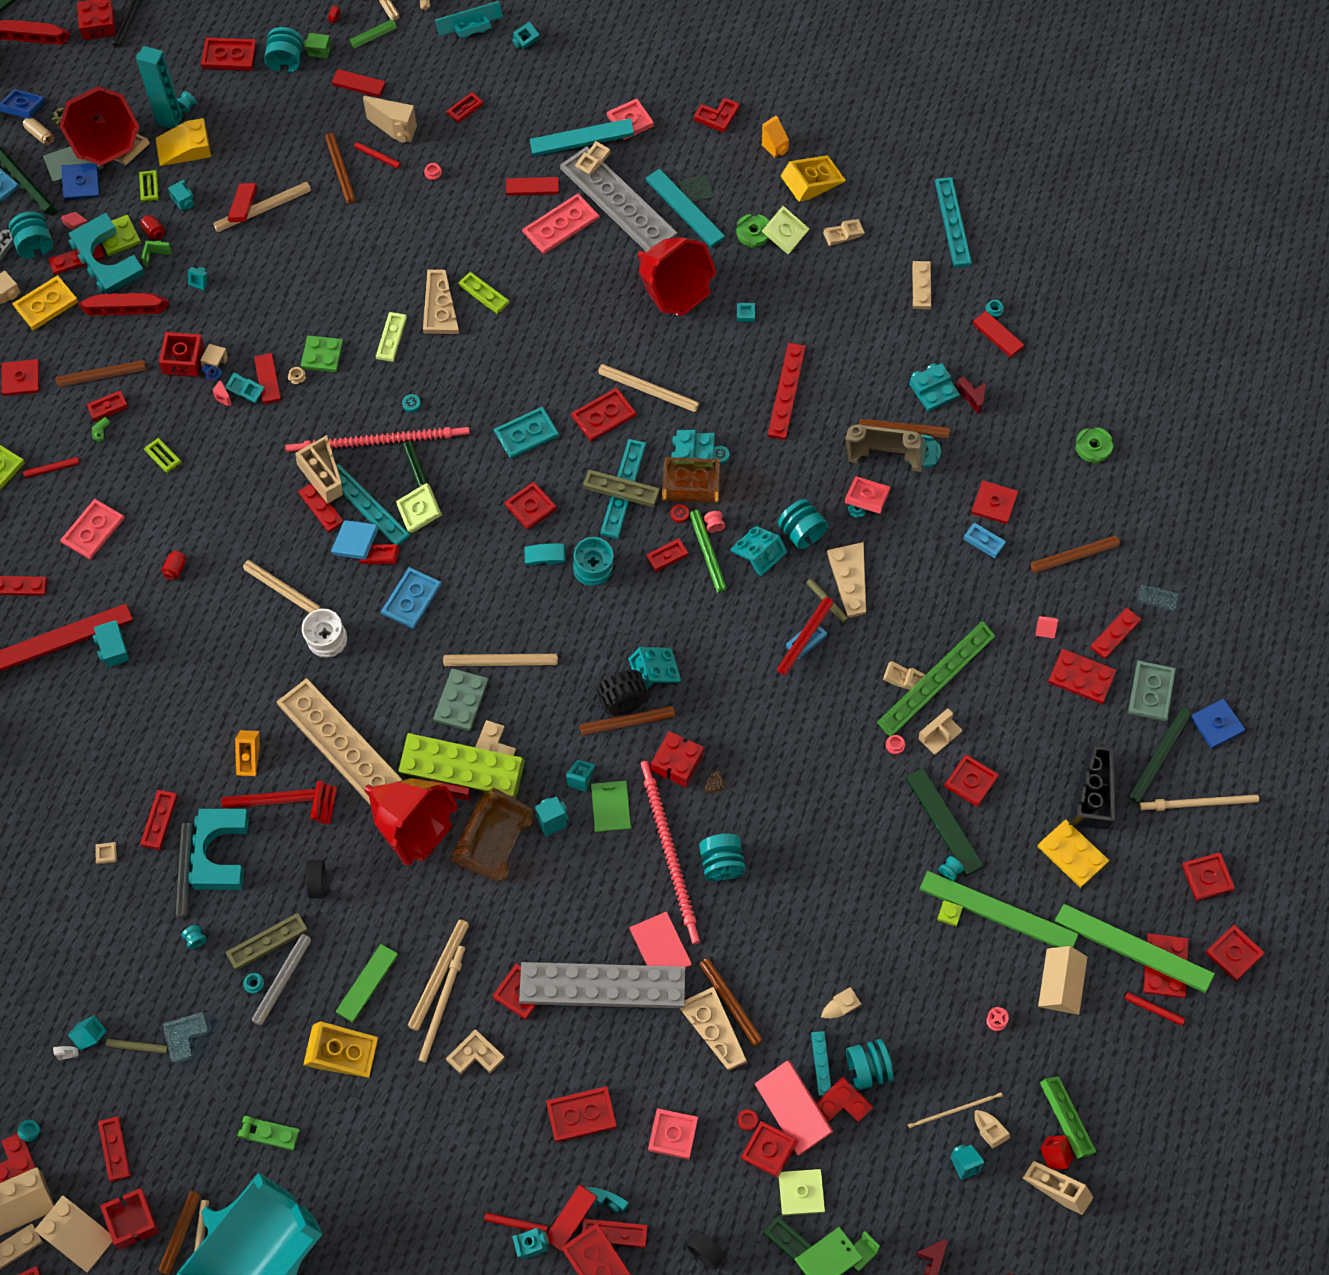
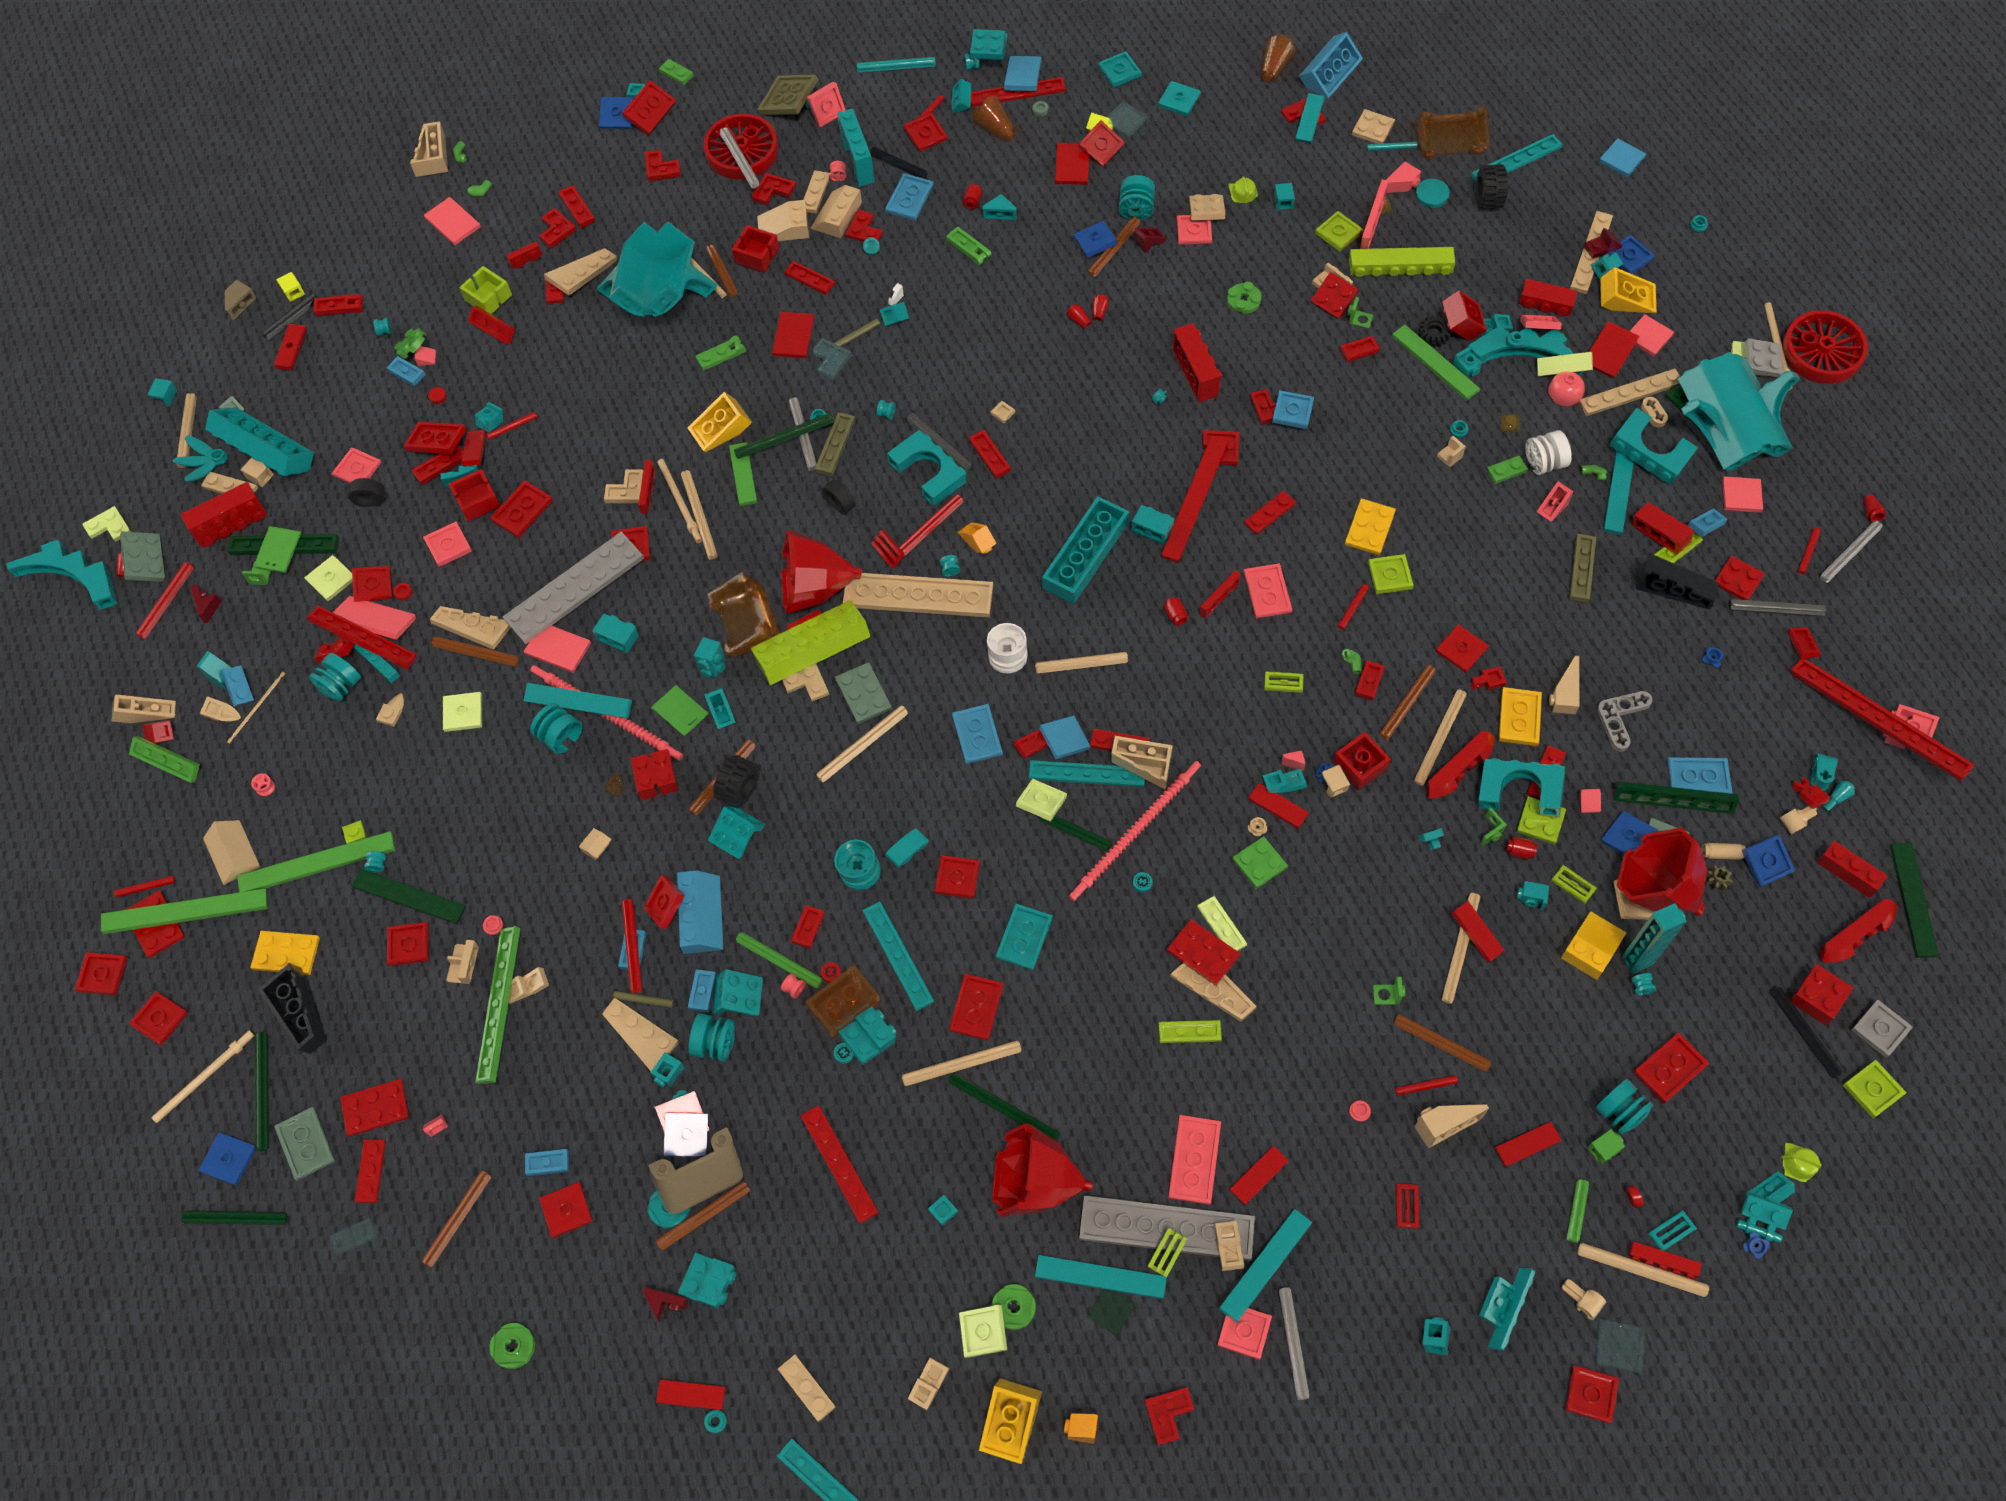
camera: 140 degrees right, 0 degrees up
(30, 233) = (1599, 750): teal wheel -> none
(31, 340) = (1491, 677): none -> red plate
(110, 334) = (1440, 737): none -> tan axle
(129, 550) = (1220, 594): none -> red tile
(182, 664) = (1085, 550): none -> teal brick
(189, 1095) = (793, 335): none -> red tile
(293, 745) = (949, 565): none -> teal wheel
(300, 982) = (784, 435): none -> dark green axle
(333, 211) = (1396, 991): none -> bright green bracket
(424, 323) = (1203, 952): none -> red plate
(458, 1037) = (646, 487): none -> red tile
(604, 910) = (615, 633): none -> teal brick
(608, 95) = (1294, 1344): none -> light grey axle
(612, 1160) = (474, 495): none -> red piece
(621, 488) = (894, 946): olive plate -> none
(632, 182) = (1176, 1236): none -> lime tile
(648, 341) = (1000, 1105): none -> dark green axle
(685, 873) = (578, 700): none -> teal tile
(735, 627) = (700, 912): none -> dark azure slope
(755, 646) = (664, 901): none -> red plate
(767, 742) = (595, 844): none -> tan piece
(781, 570) = (702, 990): none -> dark azure plate
(784, 952) = (462, 711): none -> yellowish green plate
(818, 1086) = (362, 637): none -> red tile
(853, 527) = (666, 1063): none -> teal brick
(874, 480) = (686, 1134): none -> plate
(958, 1133) = (237, 685): none -> dark azure plate
(1237, 676) = (220, 1217): none -> dark green axle

